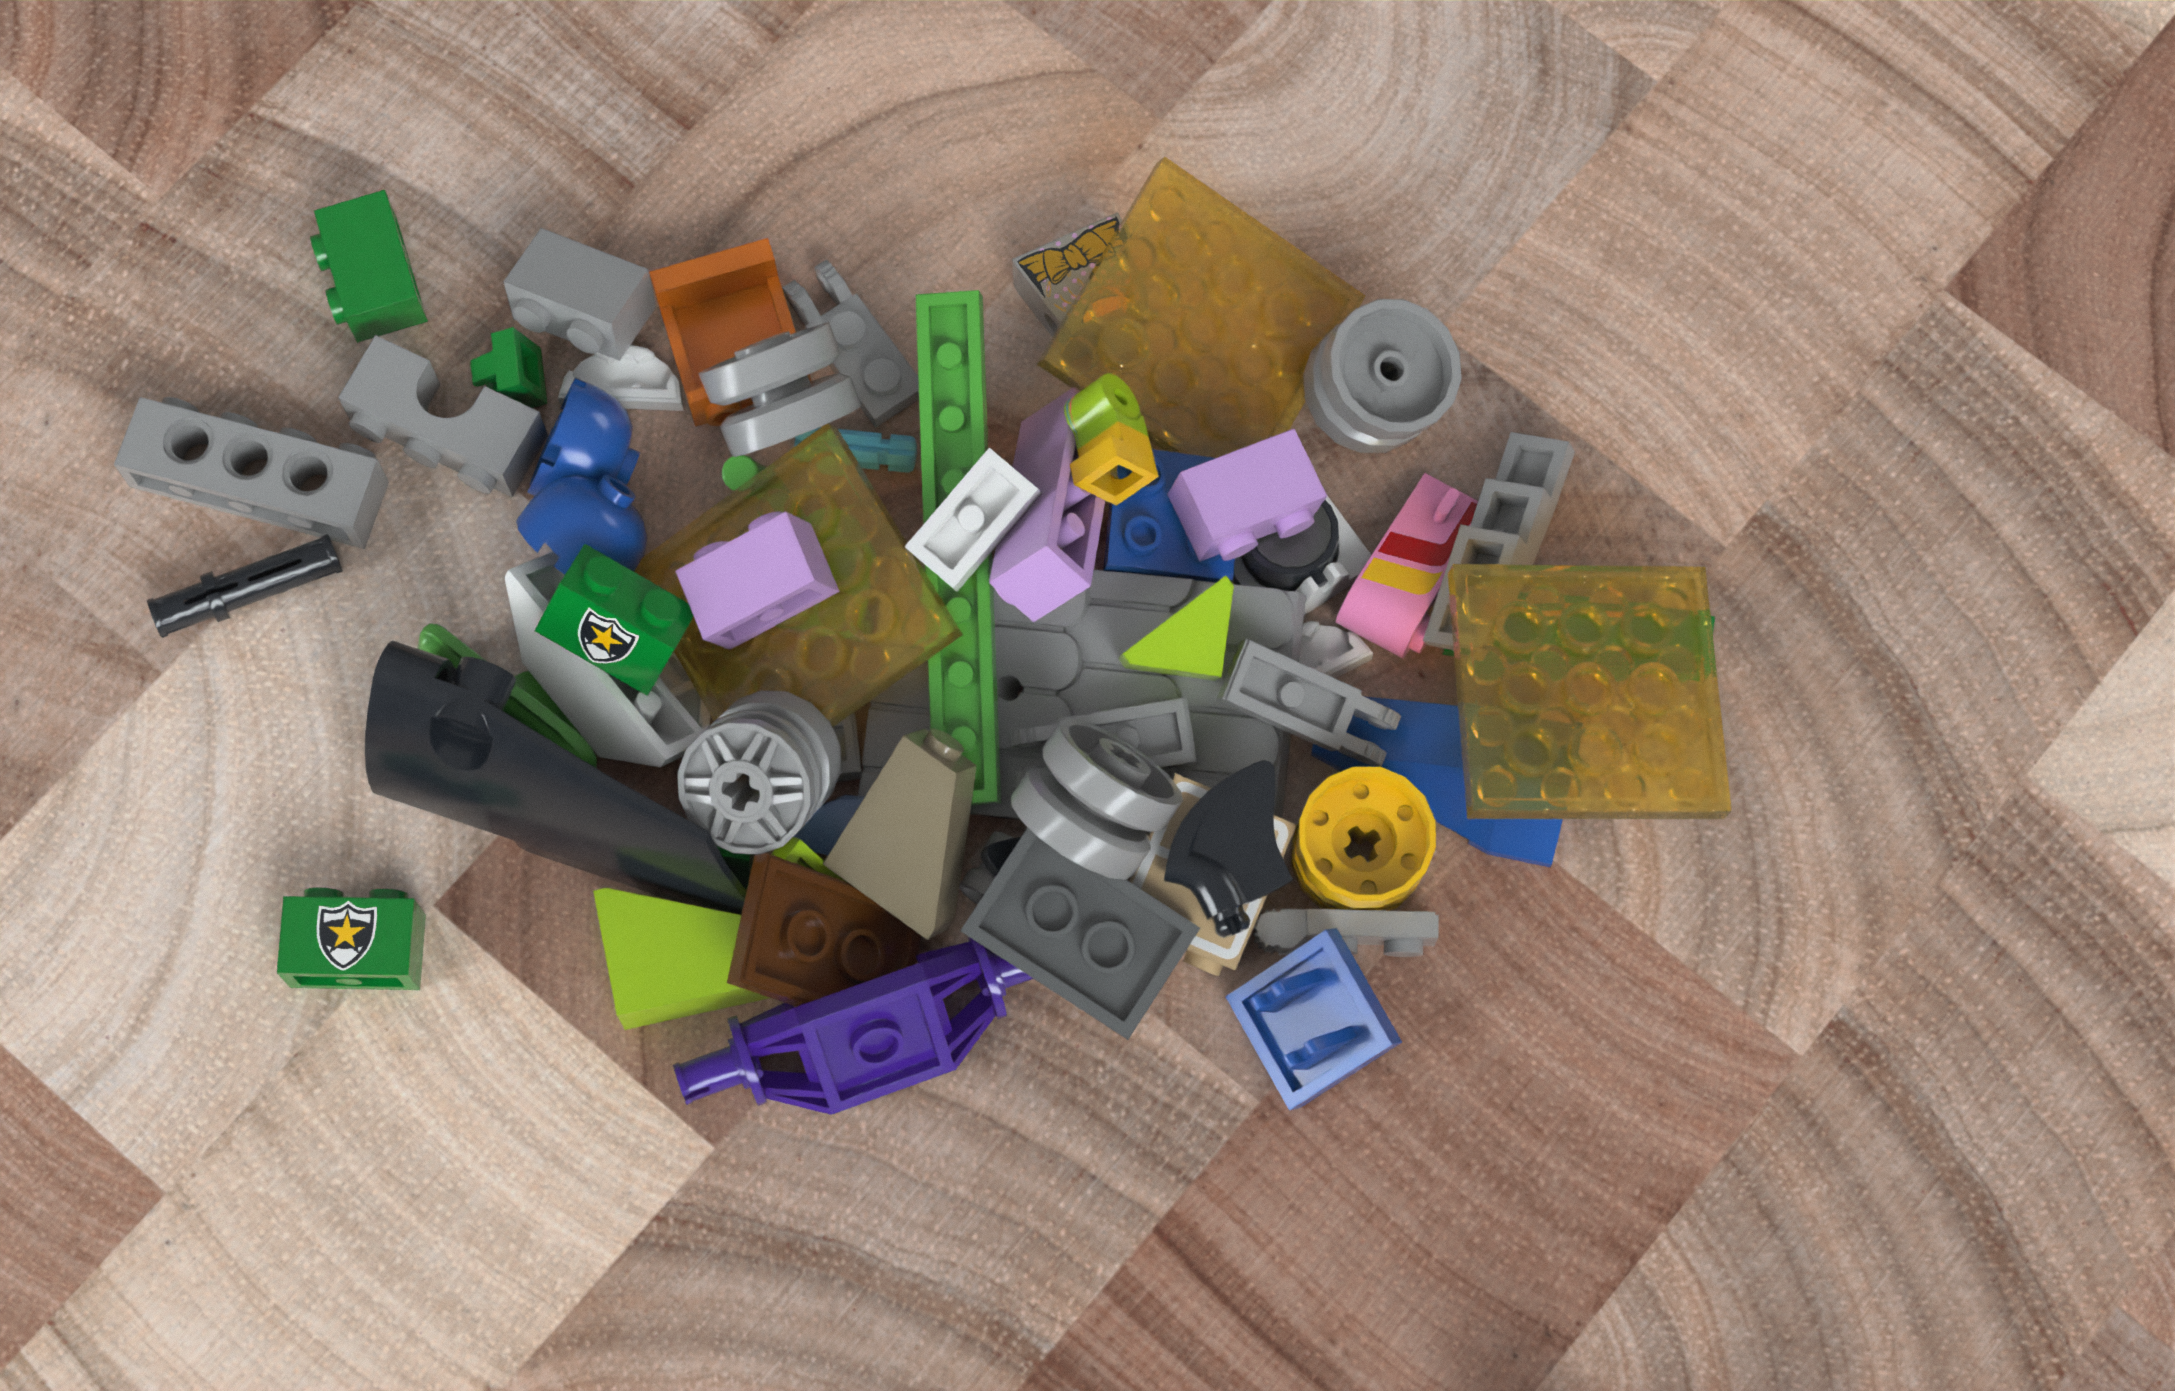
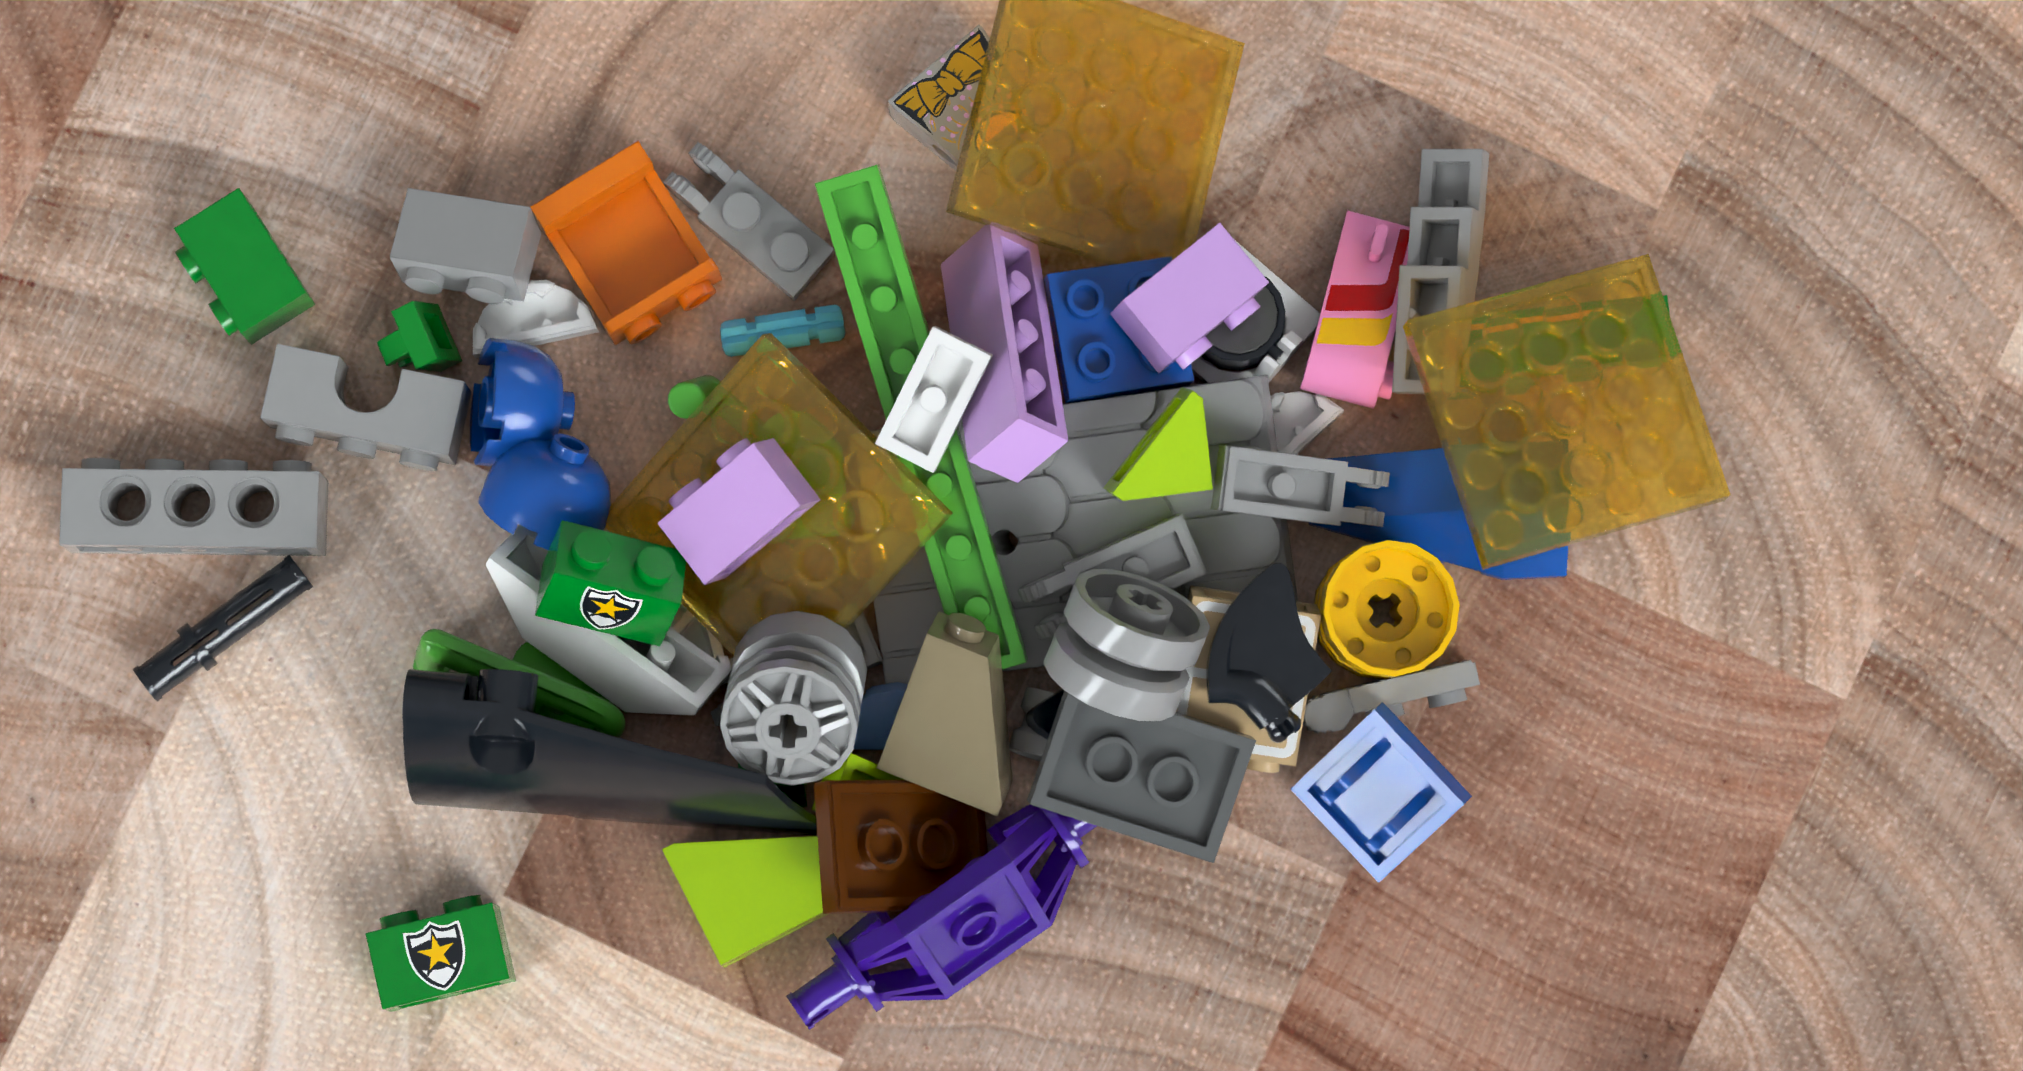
camera: 15 degrees left, 10 degrees up
(781, 393) = (704, 308): light grey wheel -> none
(1107, 434) = (1041, 276): leg -> none
(1382, 376) = (1285, 130): light grey wheel -> none

